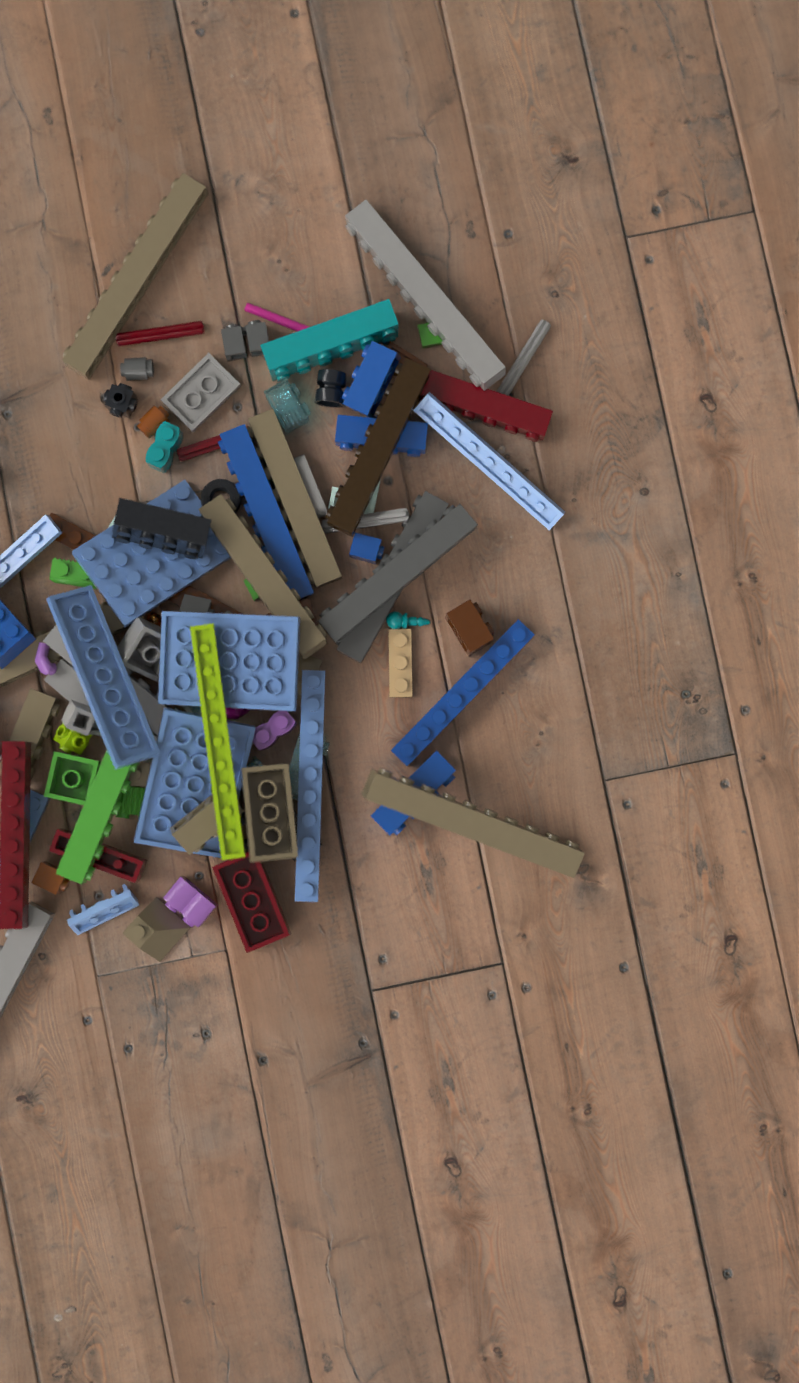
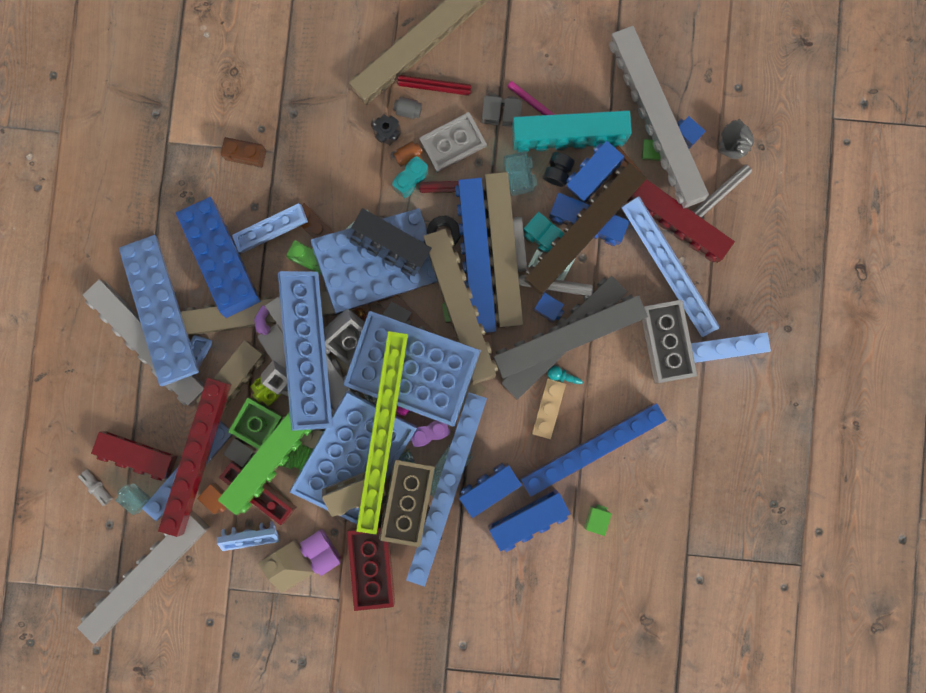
camera: 20 degrees right, 0 degrees up
(63, 816) = (240, 452): none -> dark grey brick
(331, 464) = (542, 232): none -> teal brick
(352, 779) = (489, 489): none -> blue brick
(466, 301) = (690, 130): none -> blue brick
(470, 627) = (615, 398): reddish brown brick -> none
(472, 823) = (571, 561): dark tan brick -> none
(492, 770) = (598, 519): none -> bright green brick
(511, 546) = (668, 342): none -> light grey brick
(521, 295) = (736, 140): none -> dark grey hair
(581, 533) = (730, 347): none -> light blue brick

